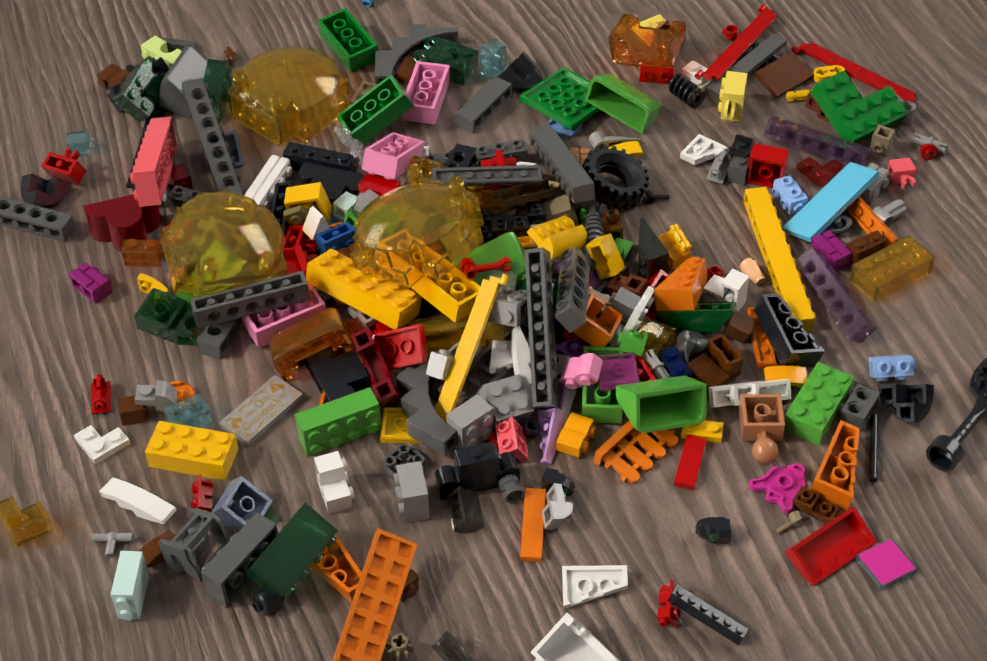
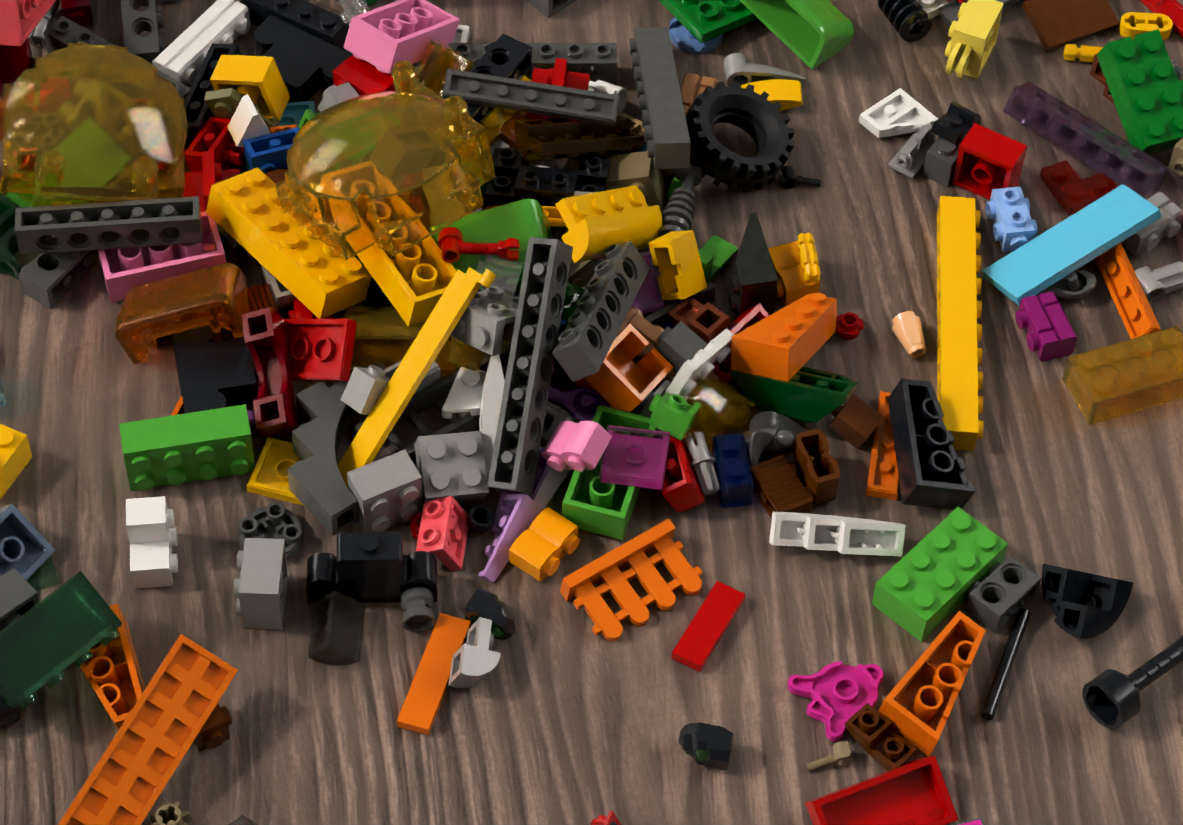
camera: 10 degrees right, 5 degrees up
(261, 410) = (83, 403): light grey tile -> none
(343, 204) = (305, 97): light aqua brick -> none
(591, 582) = (491, 786): white wing -> none
(612, 224) = (710, 216): reddish brown brick -> none
(663, 403) = (688, 524): bright green windscreen -> none
(707, 429) = (737, 568): yellow plate -> none
(728, 289) = (857, 357): white brick -> none
(762, 422) = (837, 587): nougat brick -> none
(795, 373) = (917, 517): light orange slope -> none
(835, 295) = (1027, 401): clear purple brick -> none
(866, 246) = (1103, 329): reddish brown brick -> none
(891, 366) = (1076, 537): light blue brick -> none

